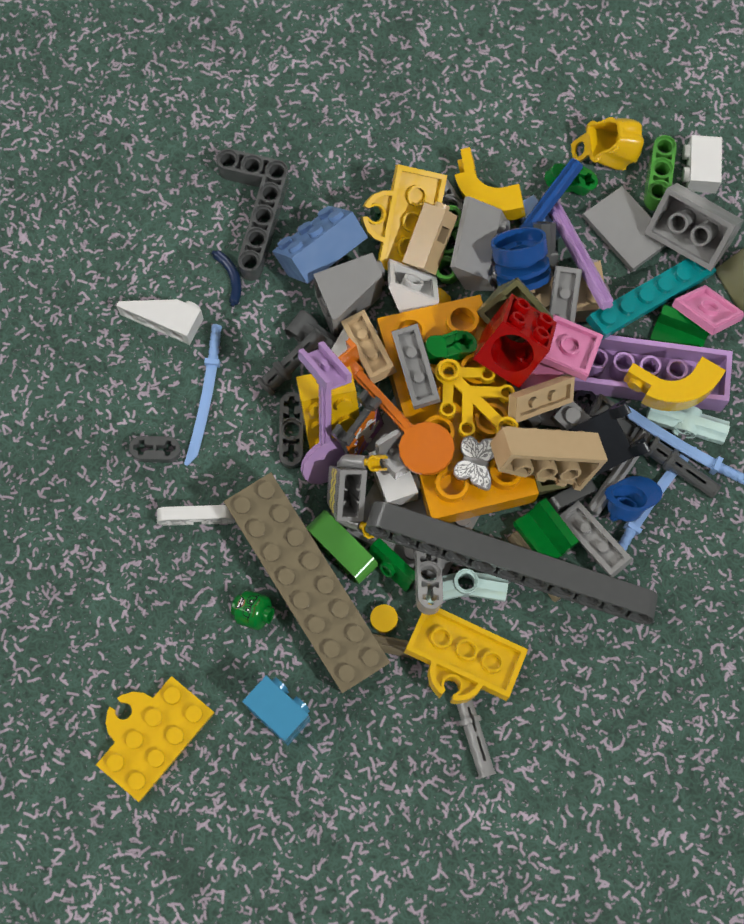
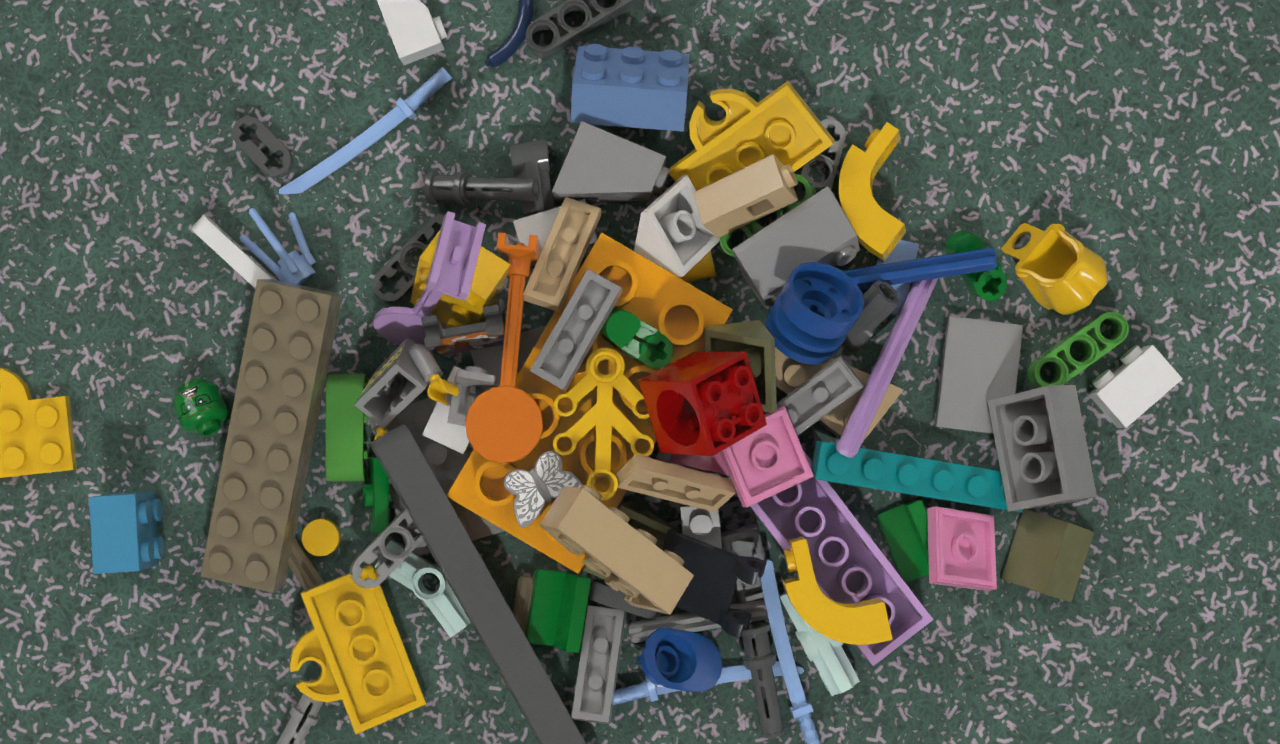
camera: 45 degrees right, 15 degrees up
(229, 487) = (294, 267): none -> light blue plant

